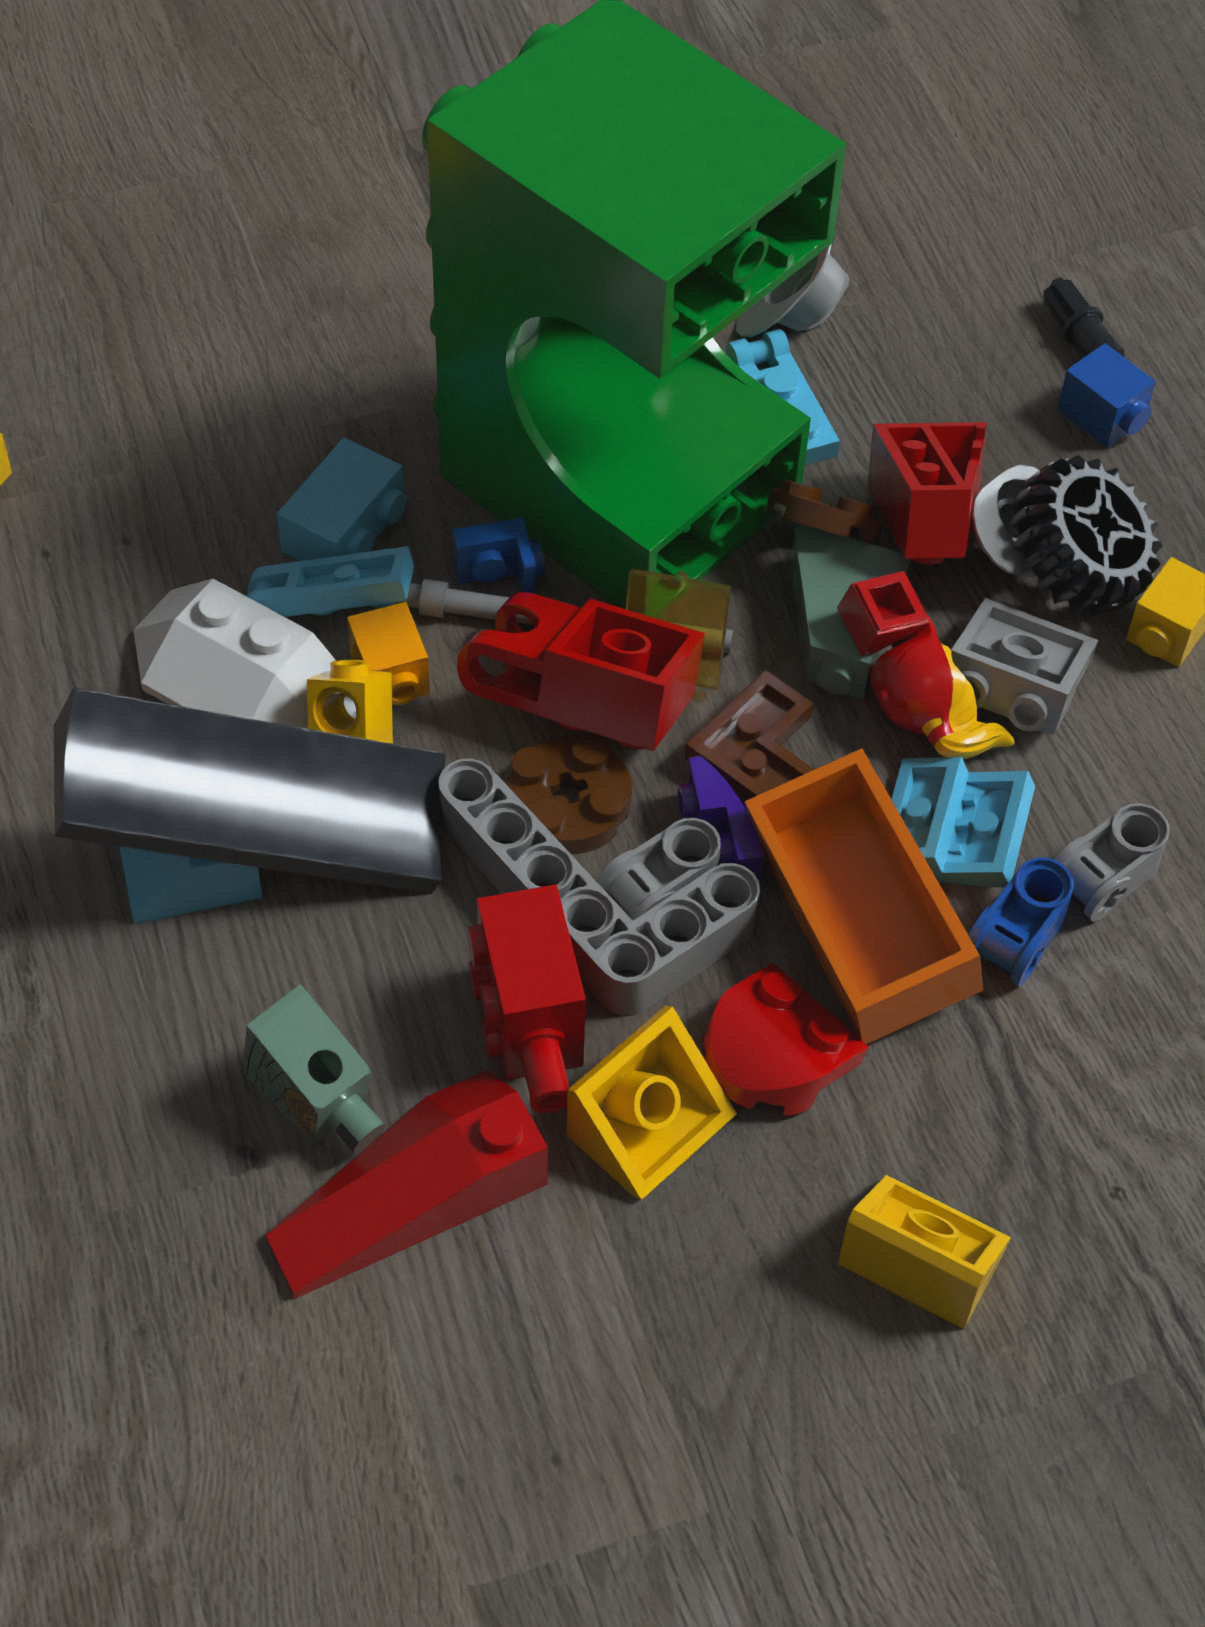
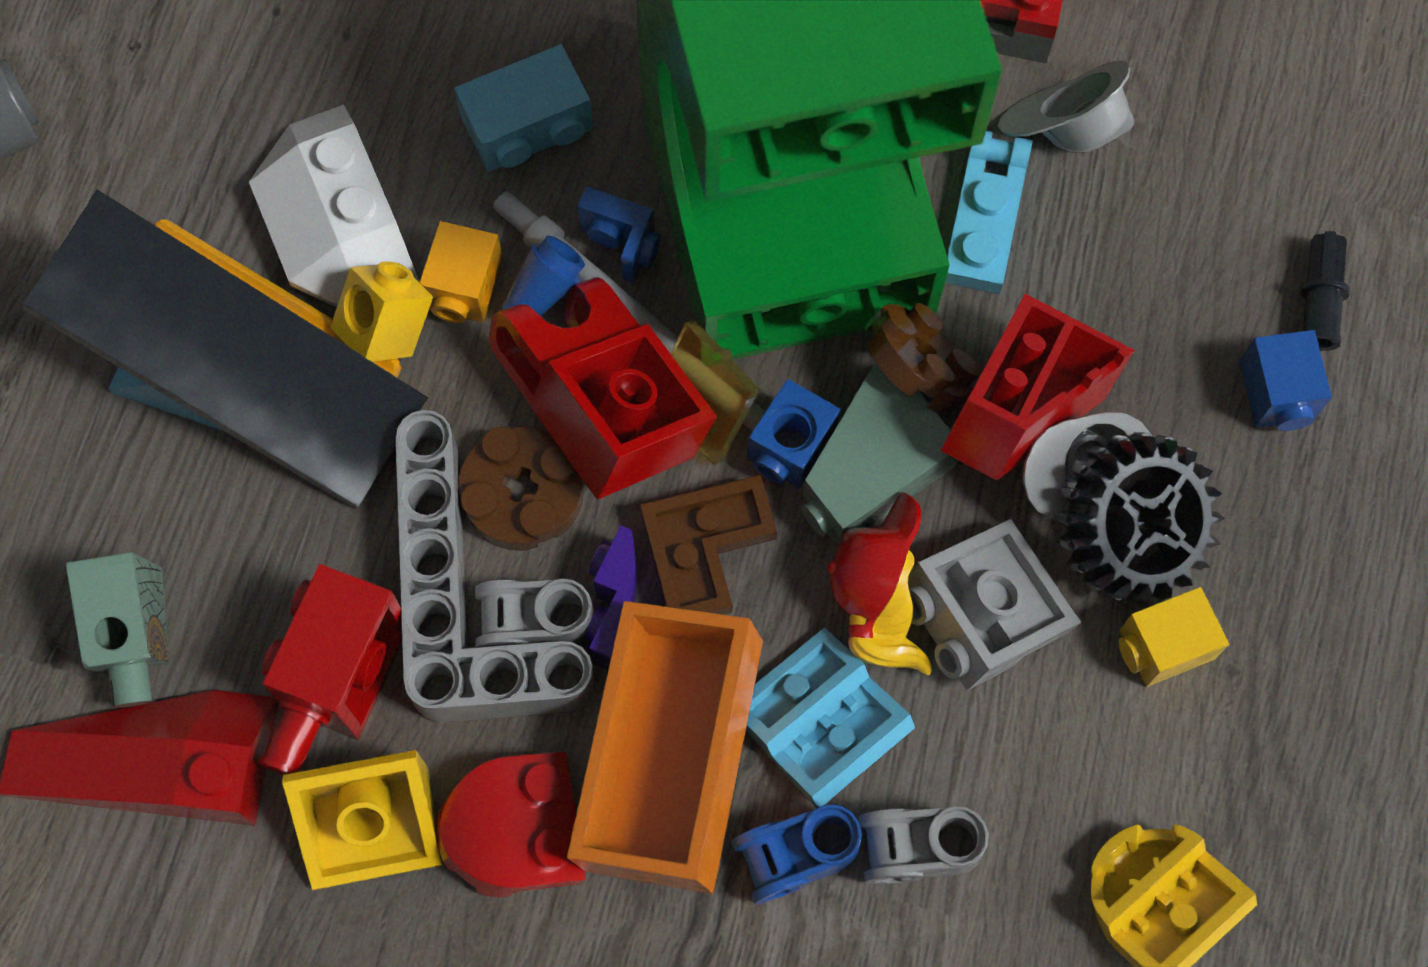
camera: 35 degrees right, 15 degrees up
(334, 582) = (454, 179): medium azure plate -> none
(464, 613) = (545, 275): none -> blue cone
(766, 628) = (797, 411): none -> blue brick
(881, 612) = (881, 491): red slope -> none

